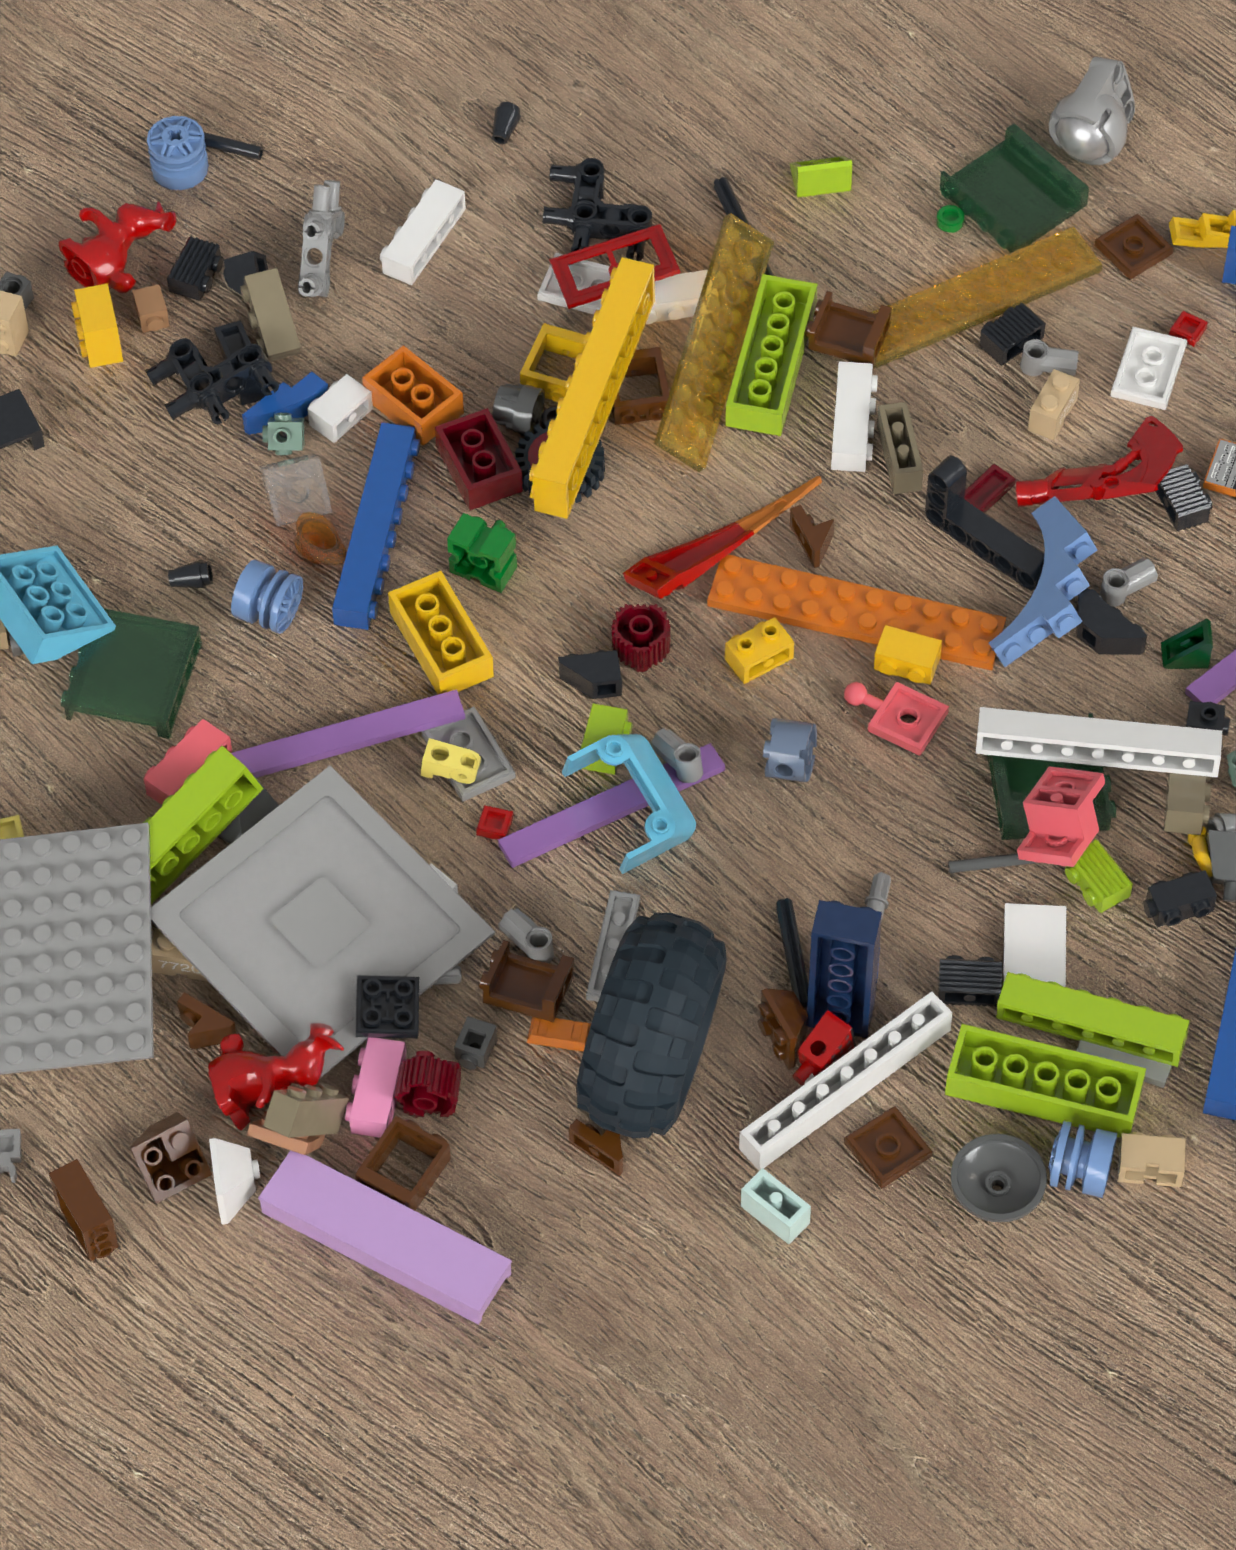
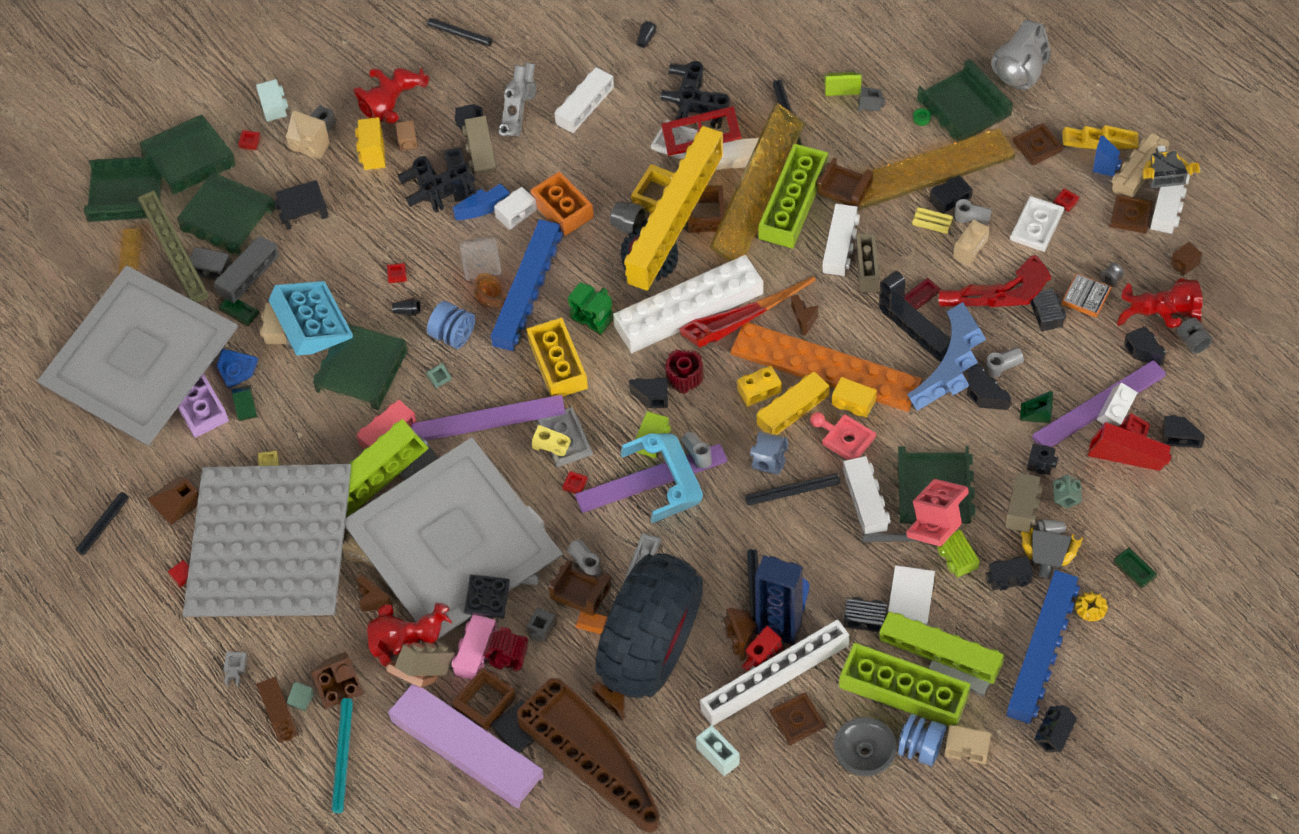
camera: 10 degrees right, 0 degrees up
(115, 1187) = (300, 696): none -> sand green slope
(166, 524) = (396, 273): none -> red tile
(177, 152) = (437, 38): medium blue wheel -> none
(194, 1271) = (342, 756): none -> teal axle
(195, 268) = (437, 112): black brick -> none
(233, 1176) = (373, 697): white slope -> none
(257, 677) = (438, 375): none -> sand green slope
(291, 426) = (481, 217): sand green brick -> none
(463, 1200) = (507, 728): none -> black tile
(478, 459) = (597, 247): dark red brick -> none
(568, 1201) = (587, 736): none -> reddish brown beam
(637, 527) = (693, 299): none -> white brick
(815, 673) = (793, 404): none -> yellow brick
(832, 802) = (792, 489): none -> black axle
(868, 197) = (870, 99): none -> dark grey brick
(879, 892) = (812, 557): light grey axle -> none
(945, 802) = (866, 496): none -> white brick
(989, 372) = (933, 218): none -> light yellow tile
(1099, 742) = (968, 465): white brick -> none

